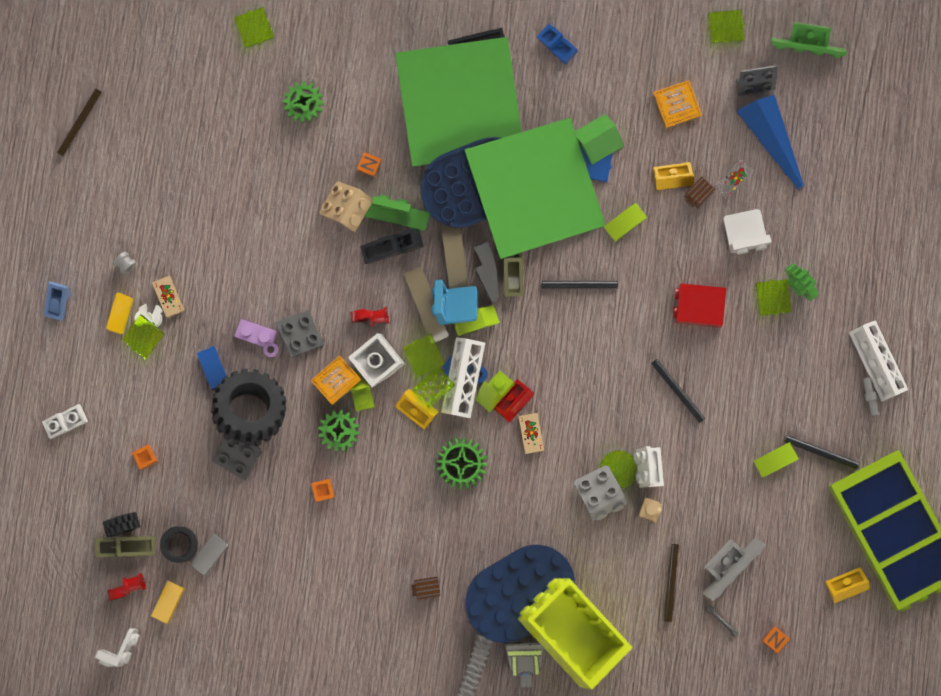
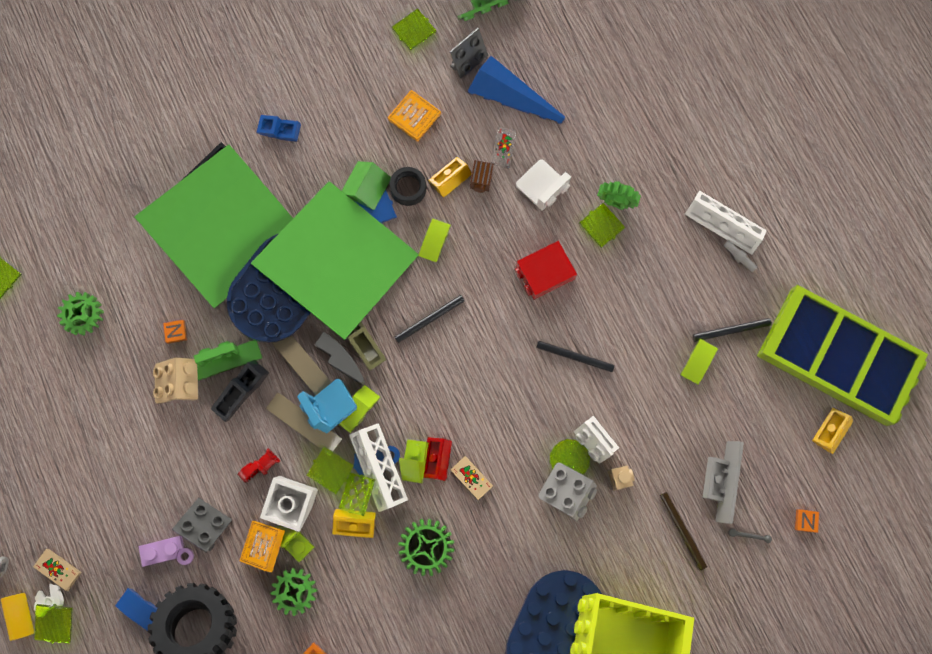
camera: 35 degrees left, 5 degrees down
(632, 148) = (405, 172): none -> black tyre

